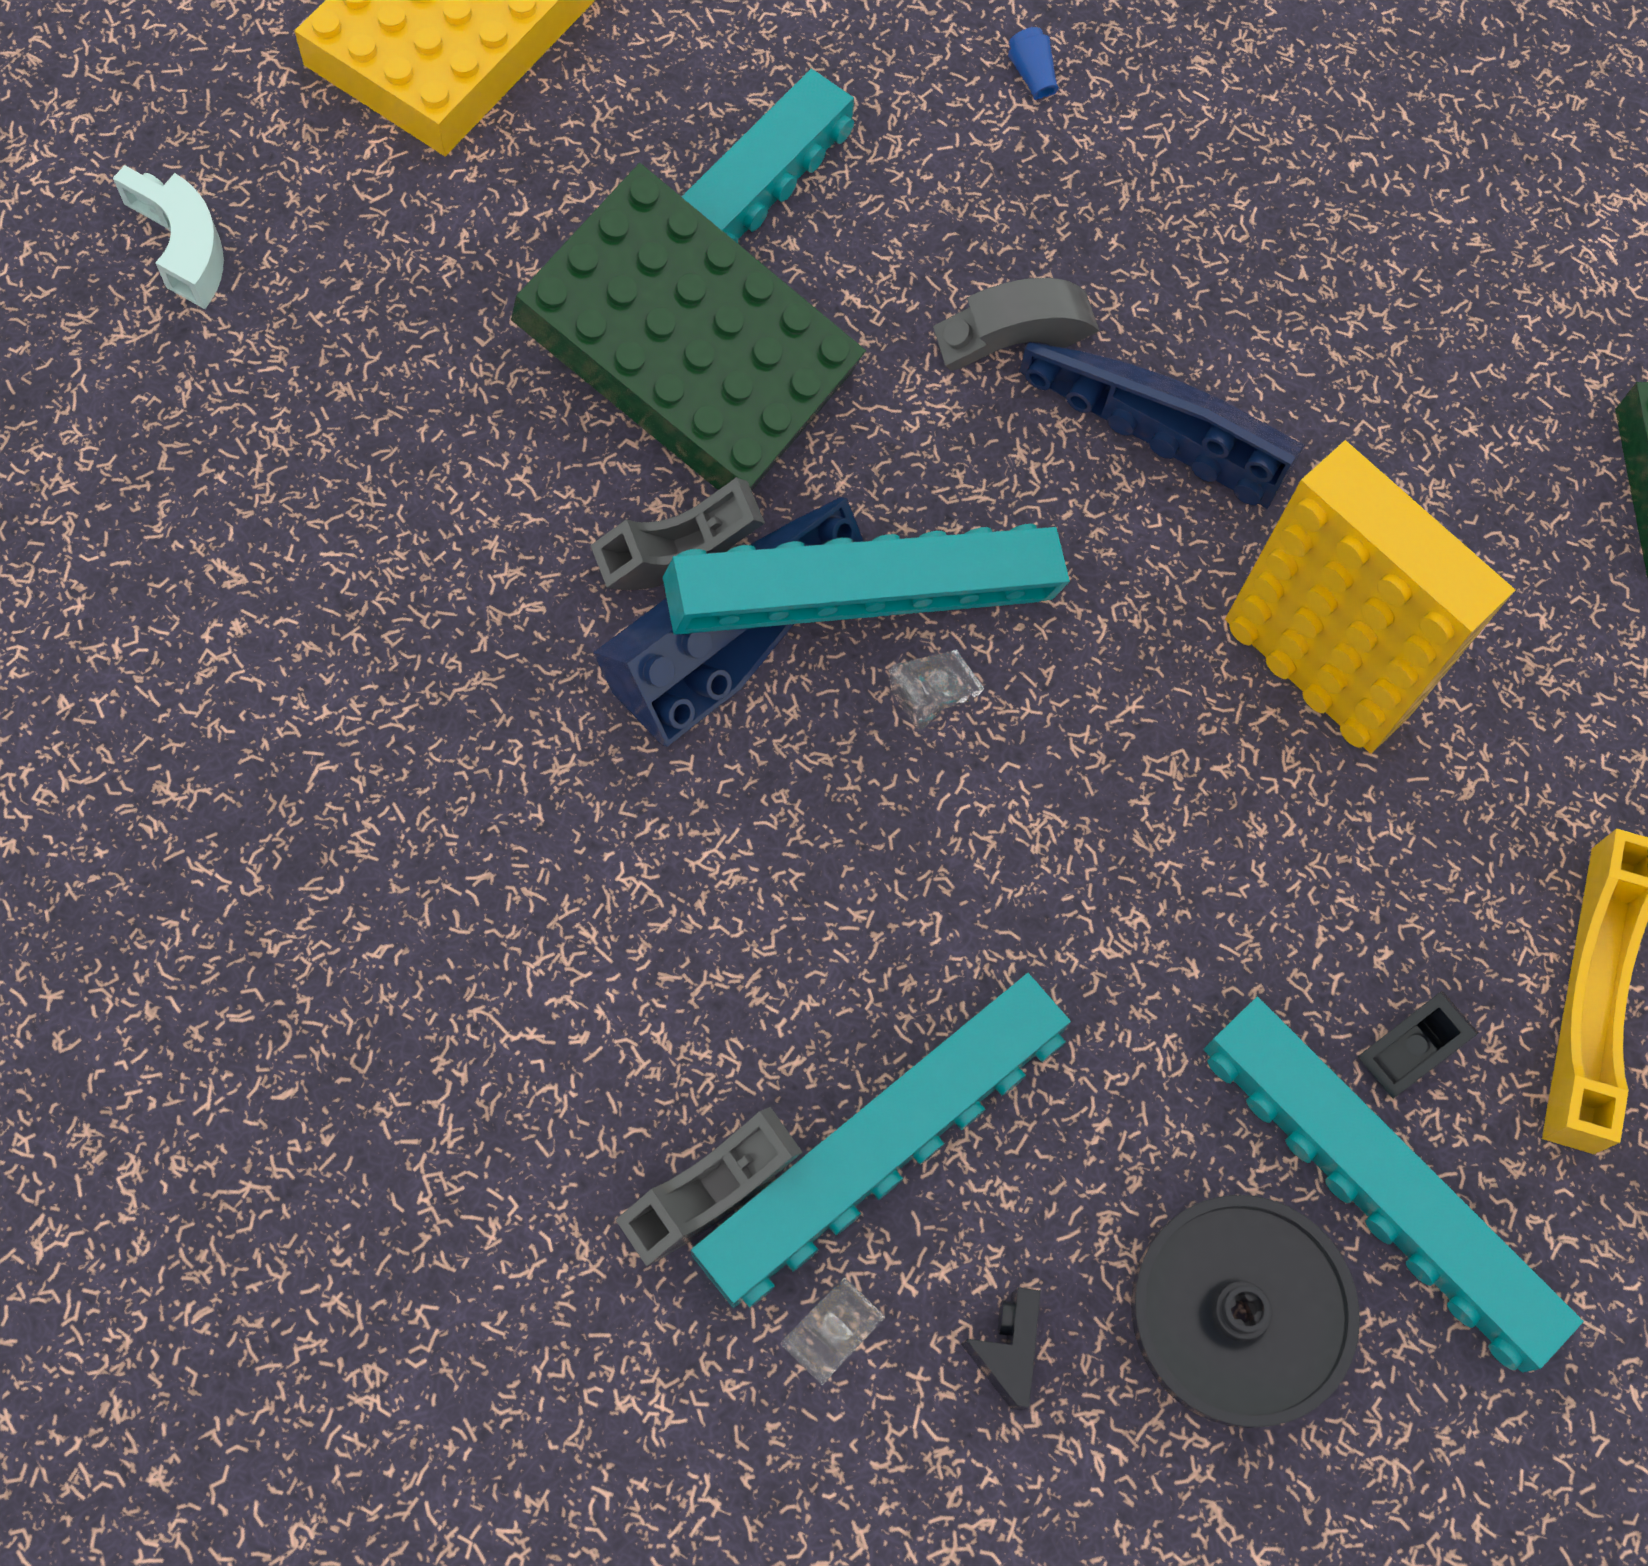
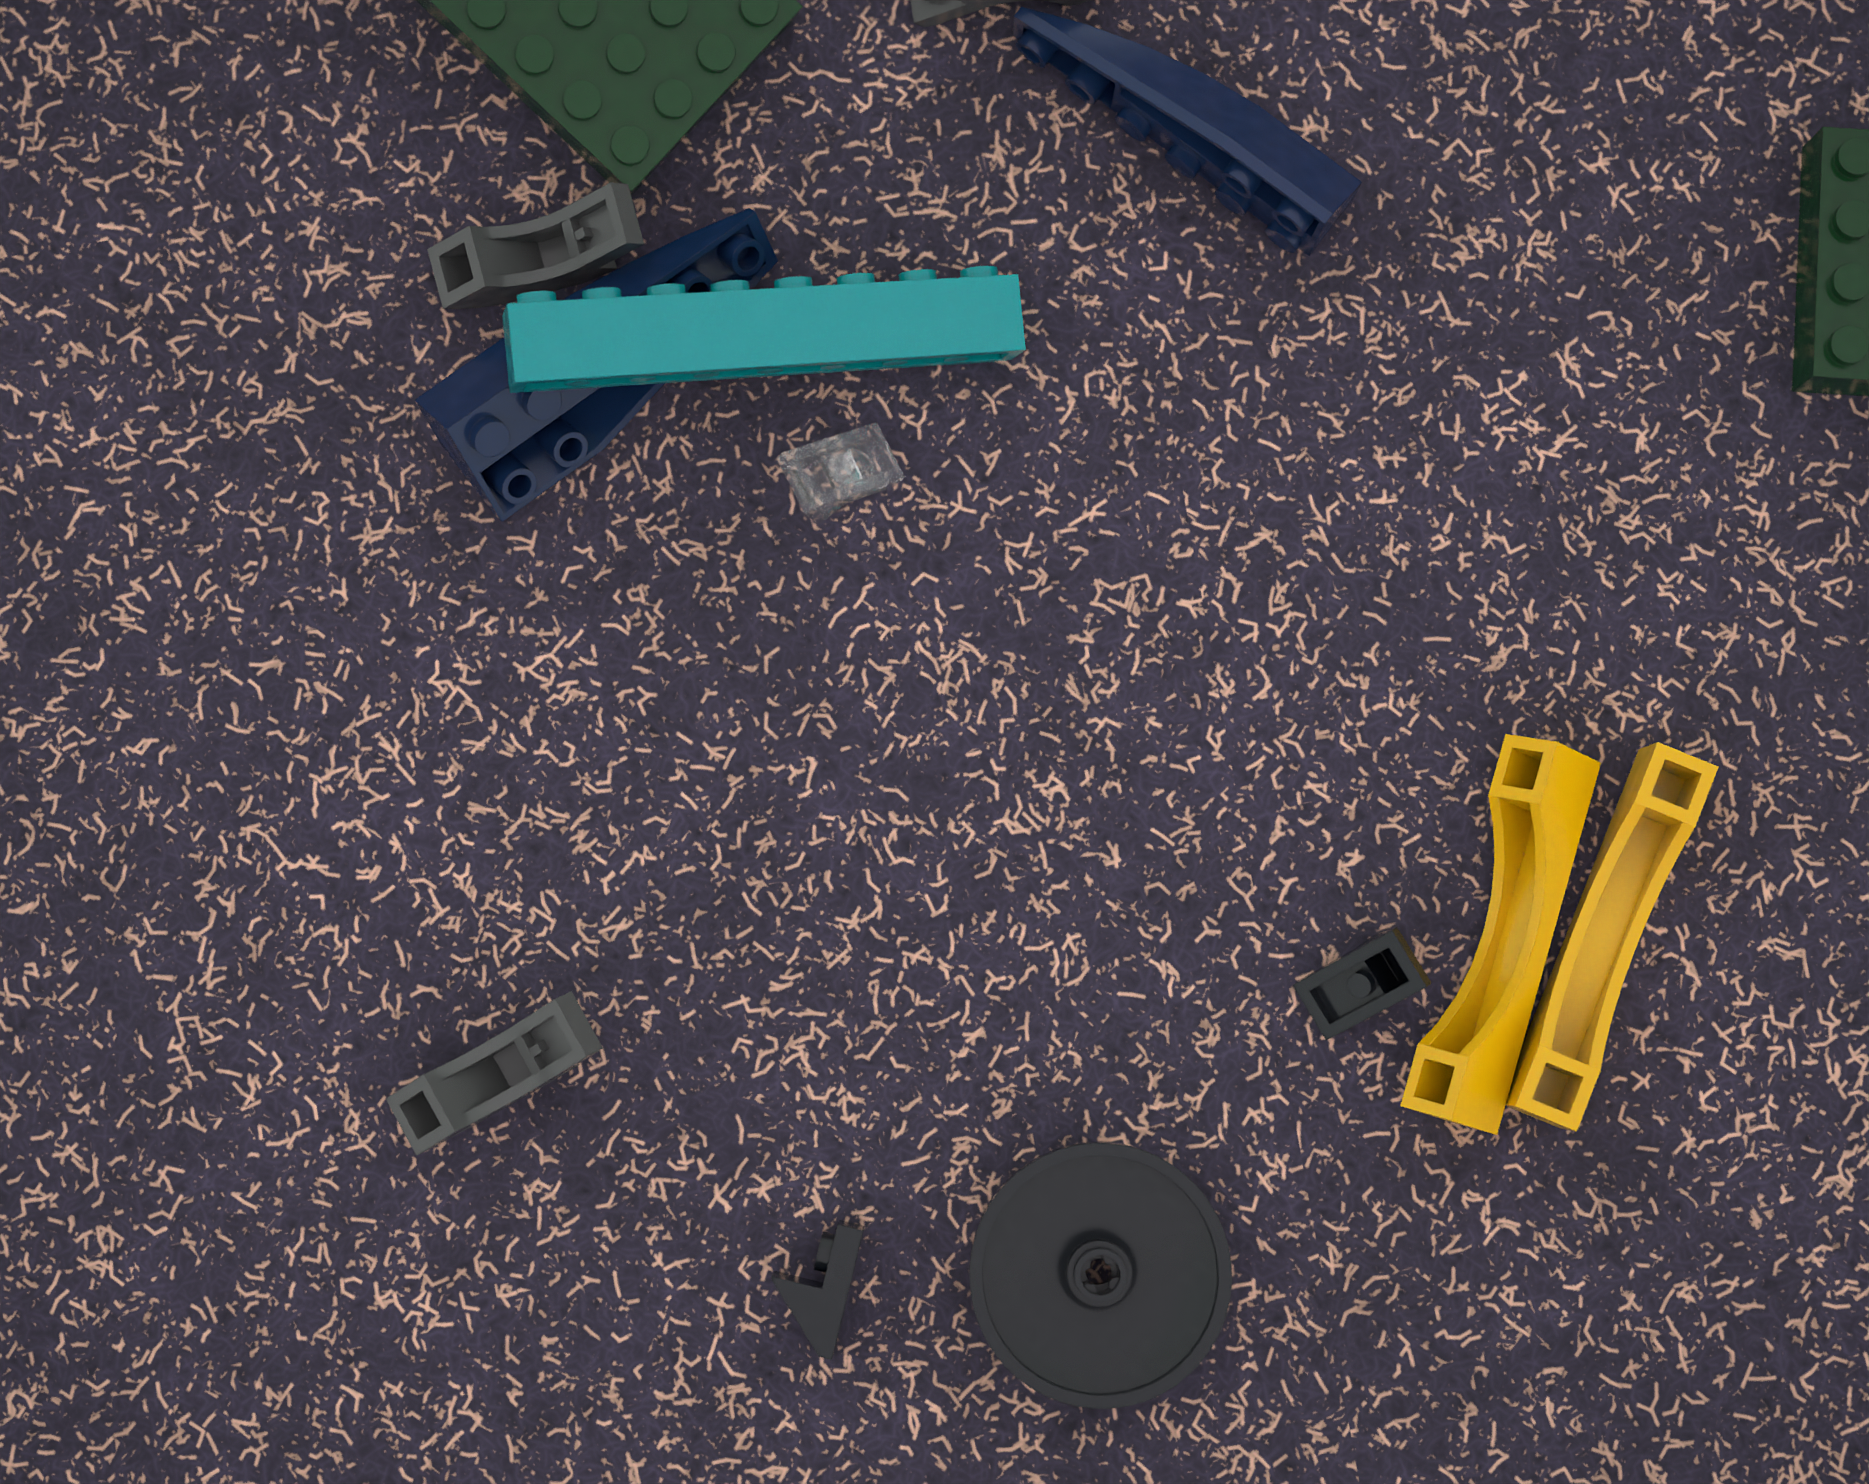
camera: 15 degrees right, 15 degrees up
(832, 1331) = (620, 1250): clear slope -> none
(879, 1141) = (705, 1033): teal brick -> none
(1363, 598) = (1362, 436): yellow brick -> none
(1394, 1188) = (1301, 1145): teal brick -> none
(1517, 1086) = (1538, 817): none -> yellow arch

